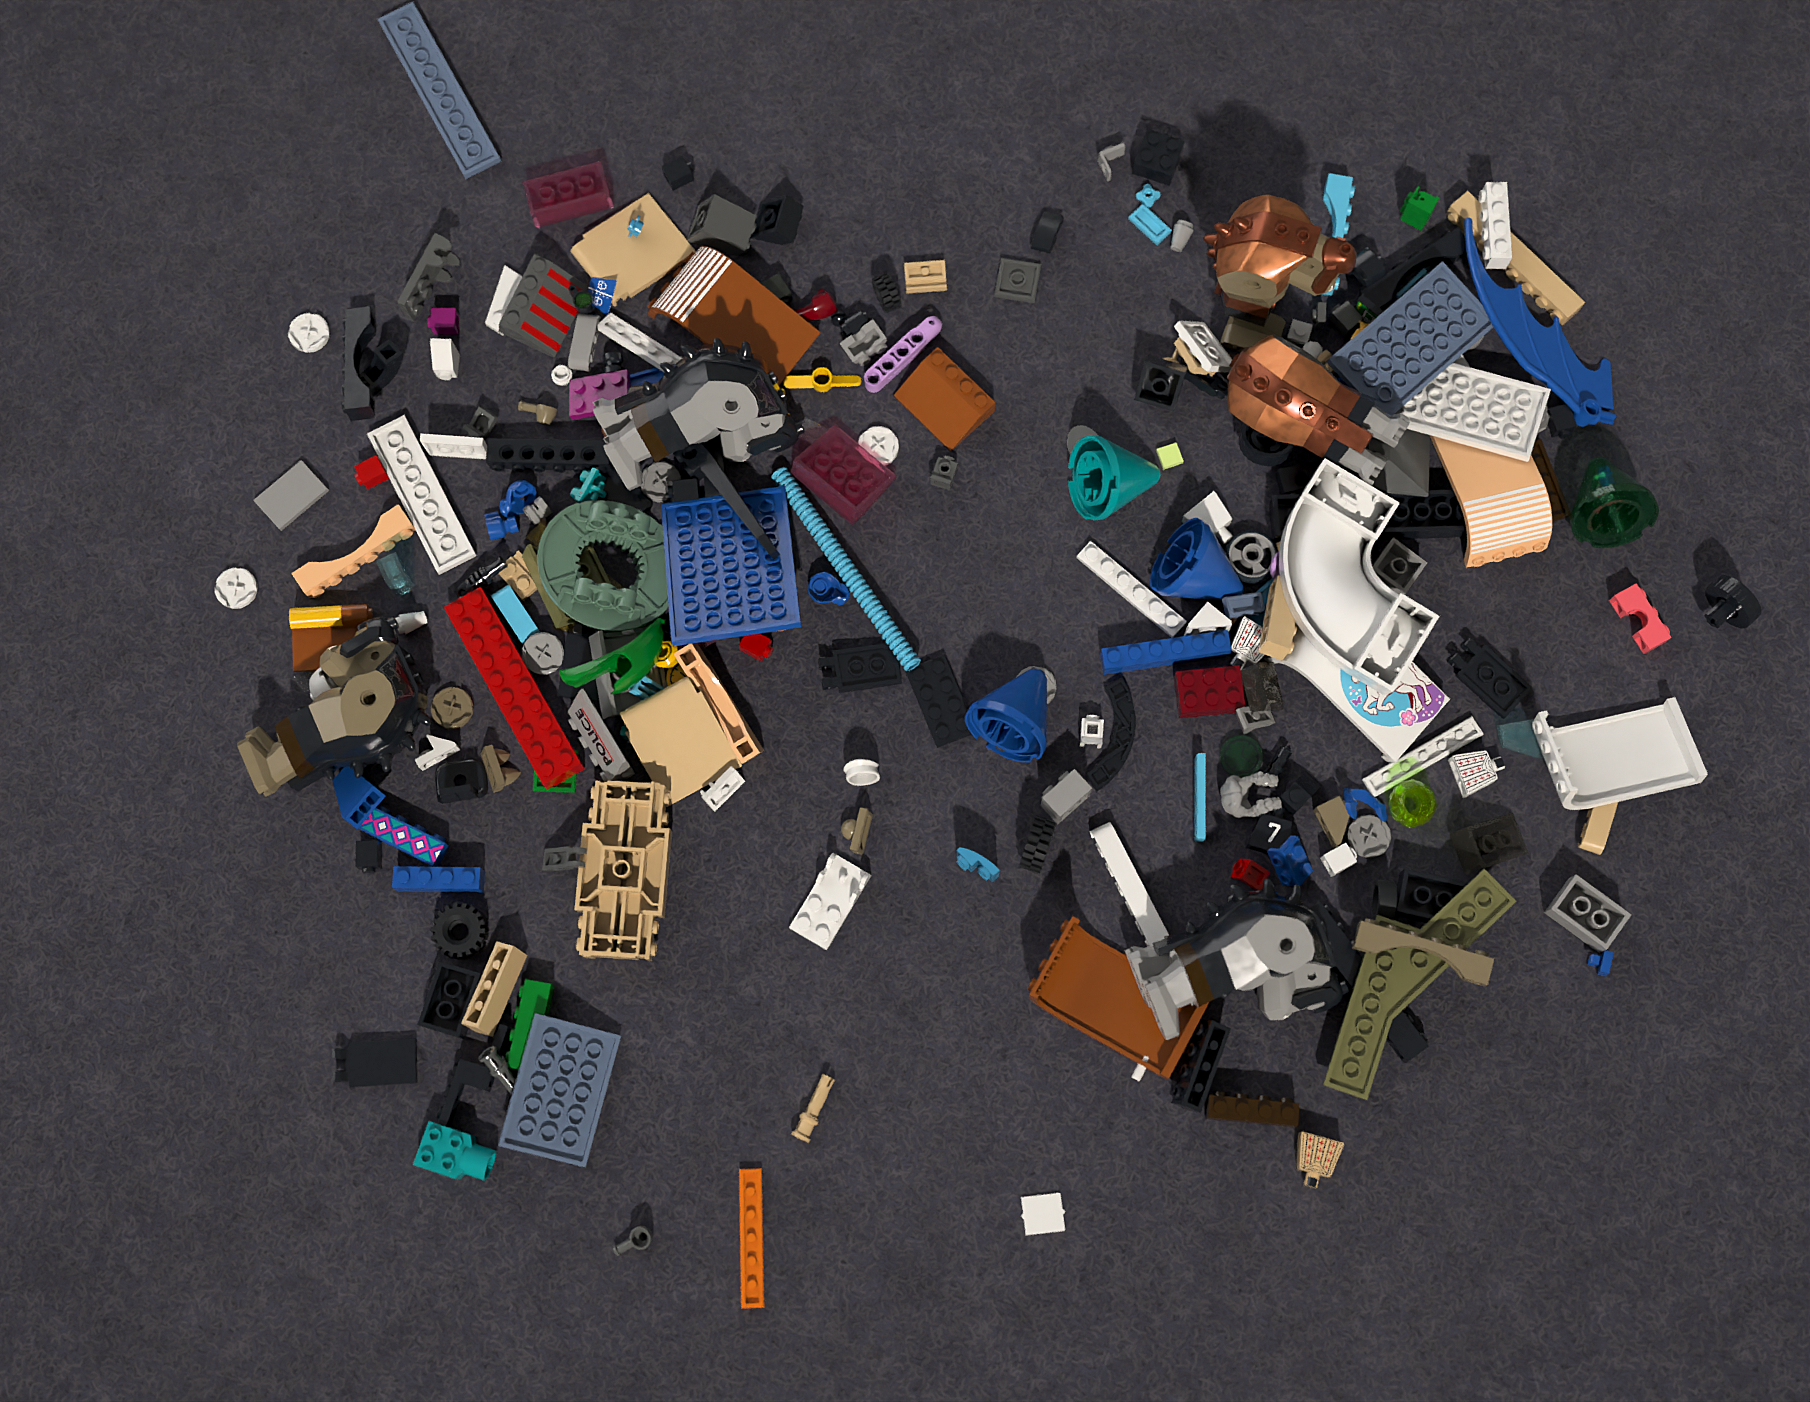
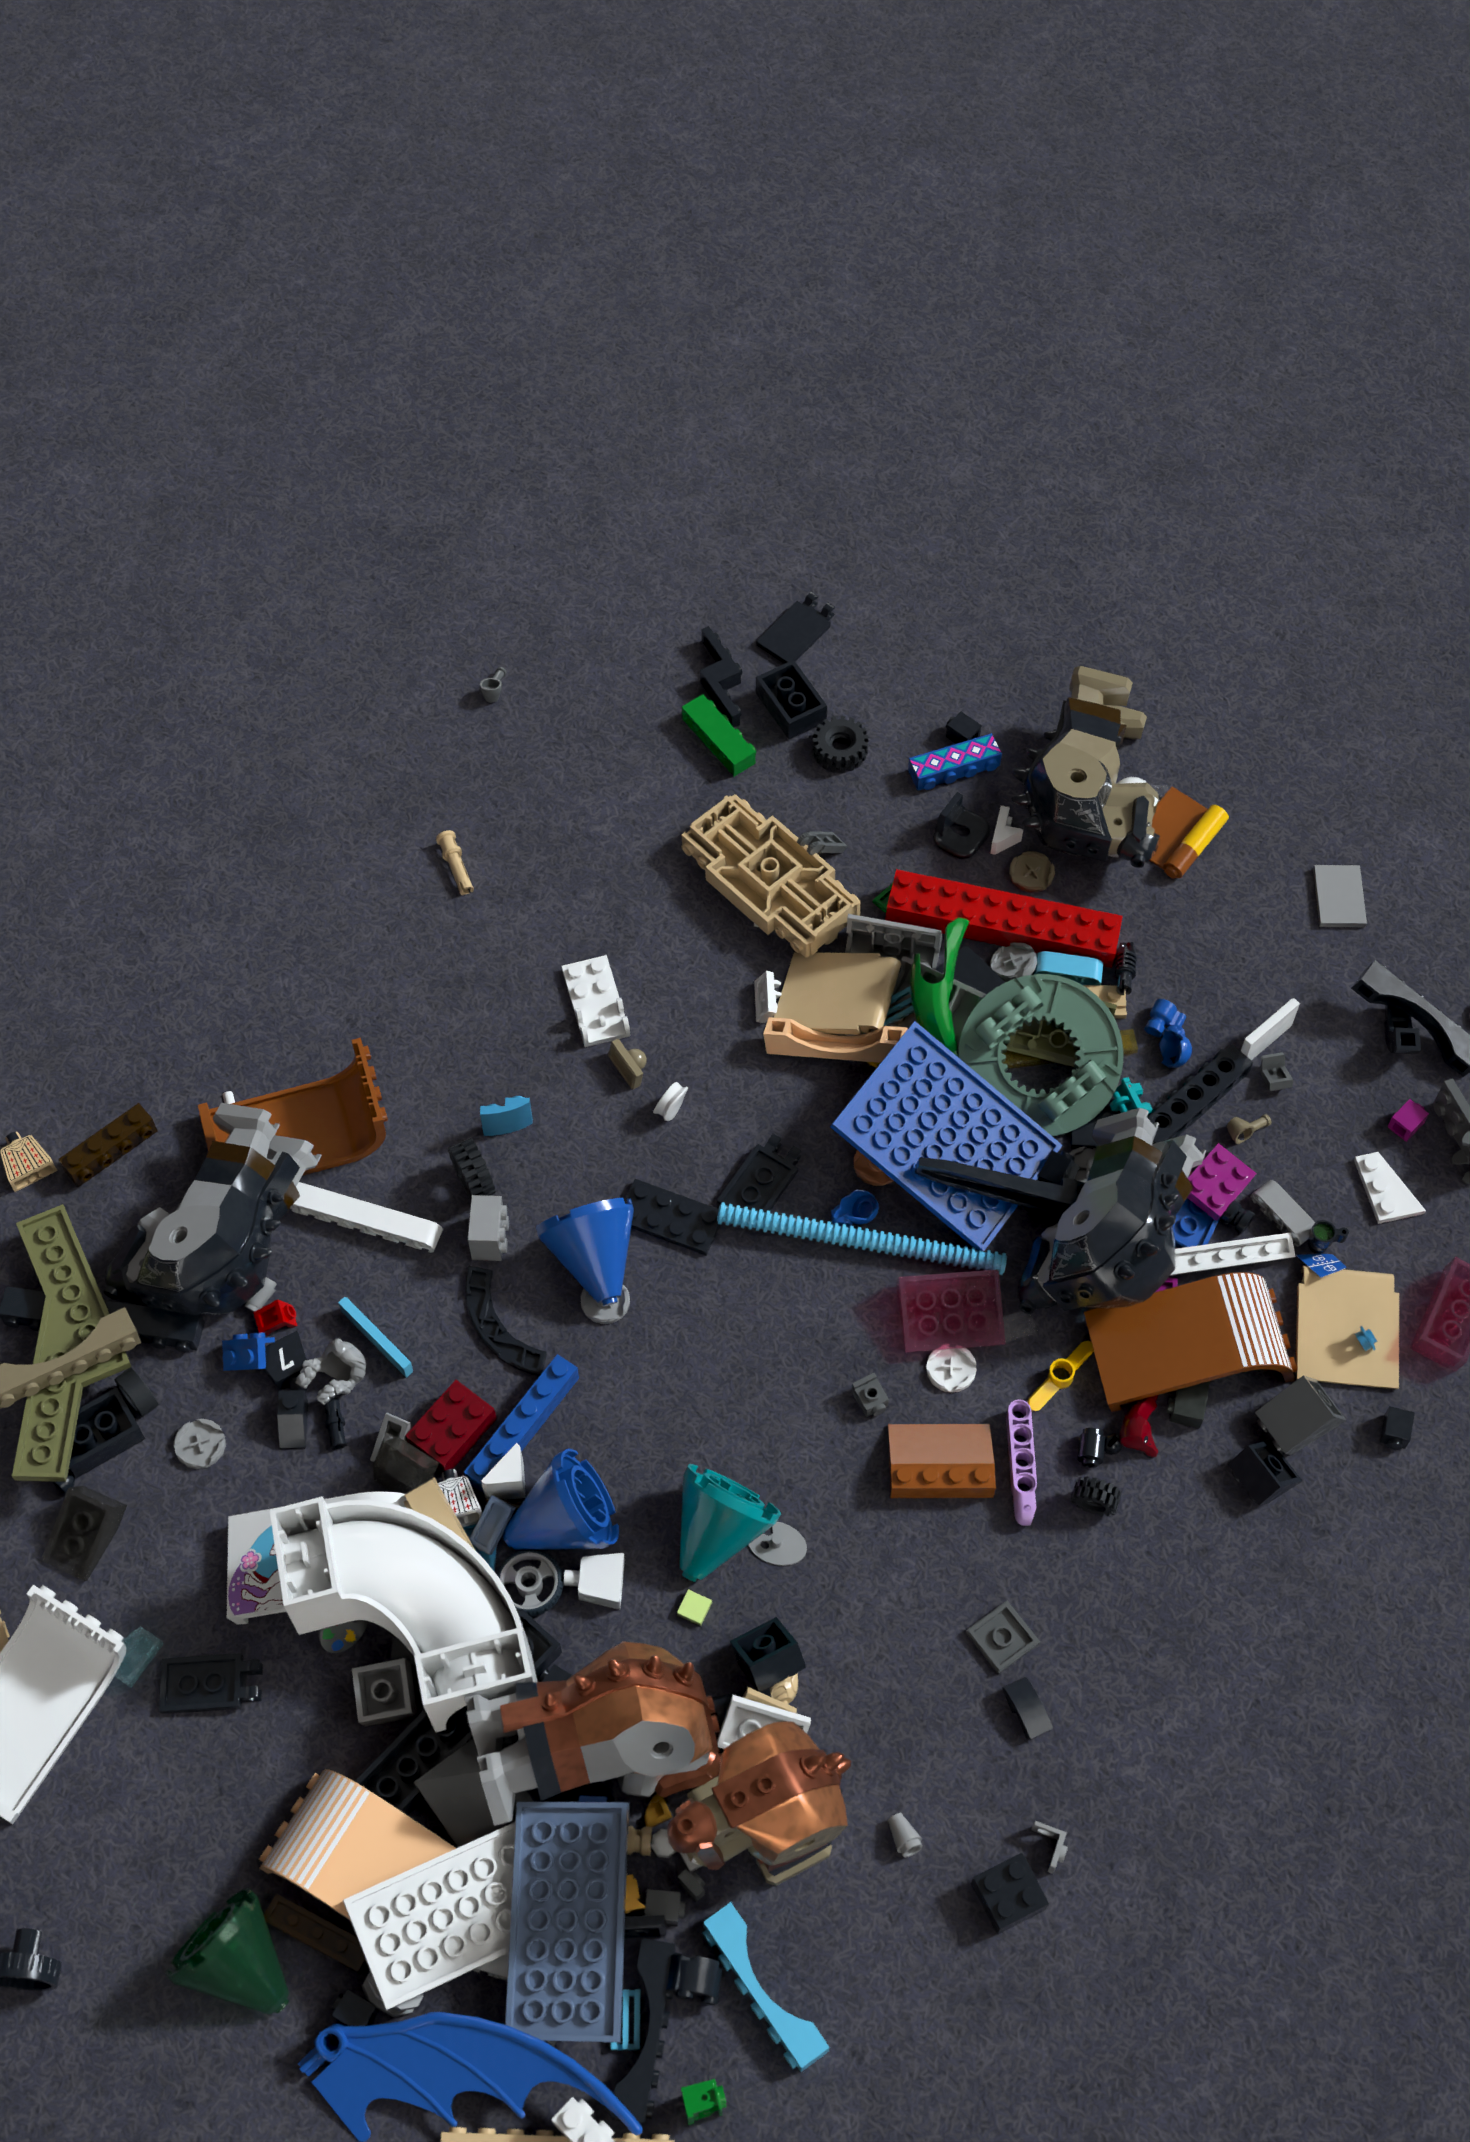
camera: 130 degrees right, 15 degrees down
(236, 588) = (1288, 803): white tile -> none
(355, 797) = (1011, 744): blue slope -> none
(370, 472) = (1305, 962): red brick -> none
(390, 529) = (1237, 937): light nougat arch -> none
(395, 573) = (1187, 906): clear light blue brick -> none
(410, 621) = (1137, 893): white cone -> none
(421, 495) = (1248, 983): white plate -> none
(438, 879) = (894, 758): blue brick -> none
(444, 358) = (1365, 1089): white slope -> none
(454, 1153) = (677, 623): teal brick -> none
(494, 989) = (769, 728): tan brick -> none
(498, 776) = (938, 857): dark tan tile -> none
(498, 1068) = (704, 686): dark grey pin -> none
(537, 510) = (1149, 1053): light grey wheel -> none
(541, 307) = (1353, 1197): dark grey slope -> none
(559, 1090) = (649, 714): sand blue plate -> none
(561, 375) = (1267, 1171): white plate -> none
(751, 1238) = (414, 756): orange tile -> none
(865, 343) = (1063, 1435): light grey cylinder -> none
(925, 276) = (1084, 1554): tan plate -> none
(1043, 1214) = (211, 947): white piece -> none
(1091, 731) = (518, 1303): white window -> none
(1131, 589) = (615, 1454): white plate -> none
(1147, 201) = (974, 1853): medium azure plate -> none
(1150, 224) = (946, 1819): medium azure tile -> none
(1200, 1065) = (178, 1134): black brick -> none
(1241, 756) = (371, 1403): clear green tile -> none
(1333, 819) = (243, 1424): dark tan slope -> none
(1339, 859) = (207, 1396): white brick -> none
(1352, 795) = (247, 1463): blue helmet -> none
(1422, 757) = (208, 1558): white tile -> none
(1424, 800) = (174, 1487): clear neon green piece -> none
(1474, 771) = (149, 1582): white torso -> none
(1634, 602) = (128, 1887): coral arch -> none

